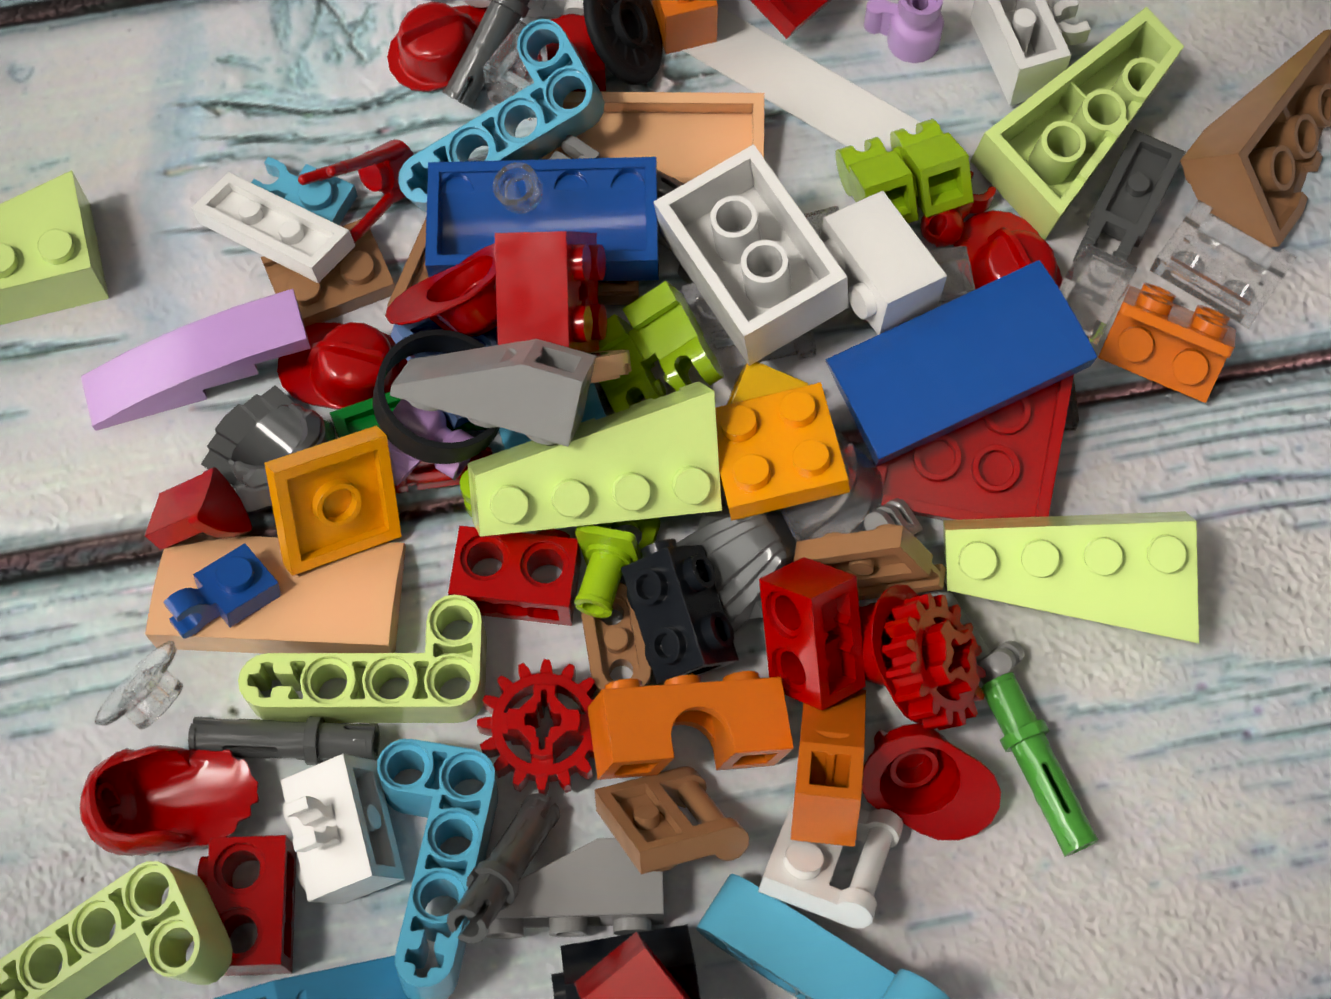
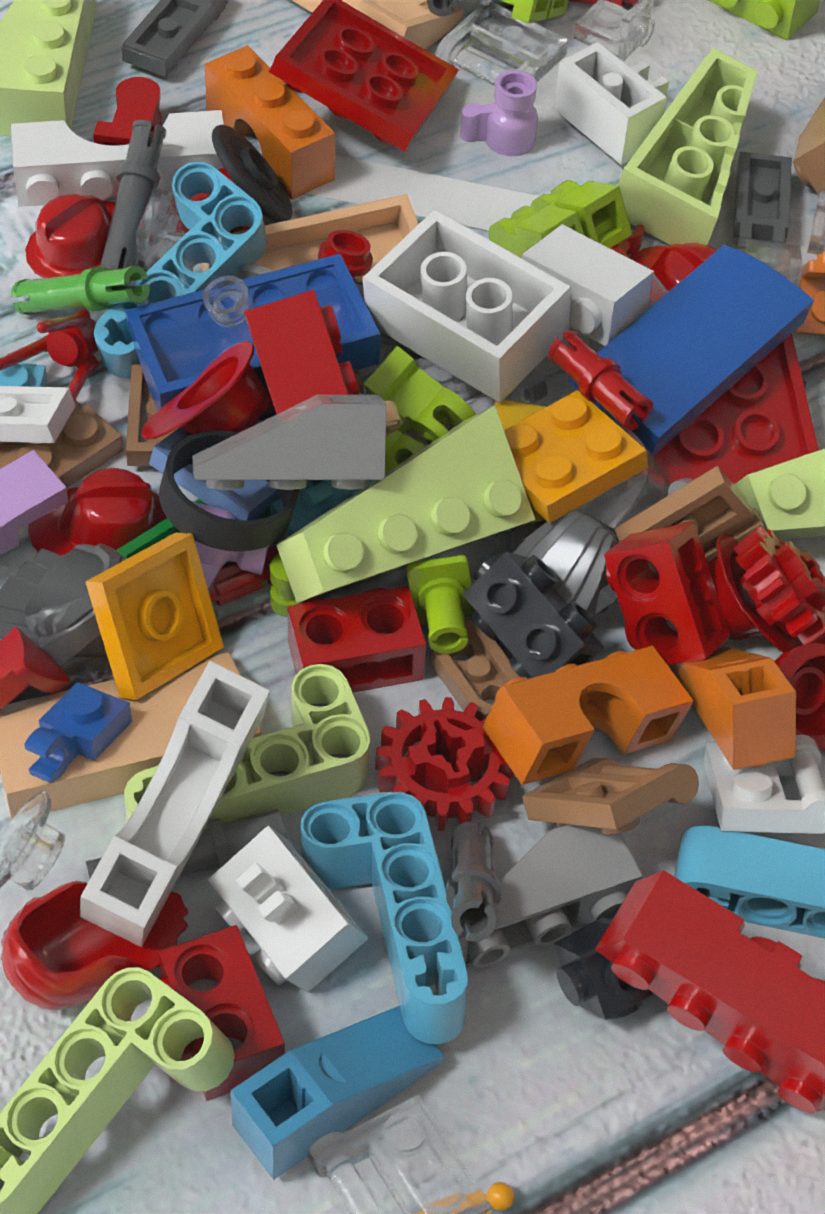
camera: 25 degrees left, 15 degrees down
(242, 735) = (174, 810): none -> white arch
(411, 126) = (93, 288): none -> bright green pin
(674, 149) = (353, 249): none -> red plate
(841, 384) = (600, 380): none -> red pin

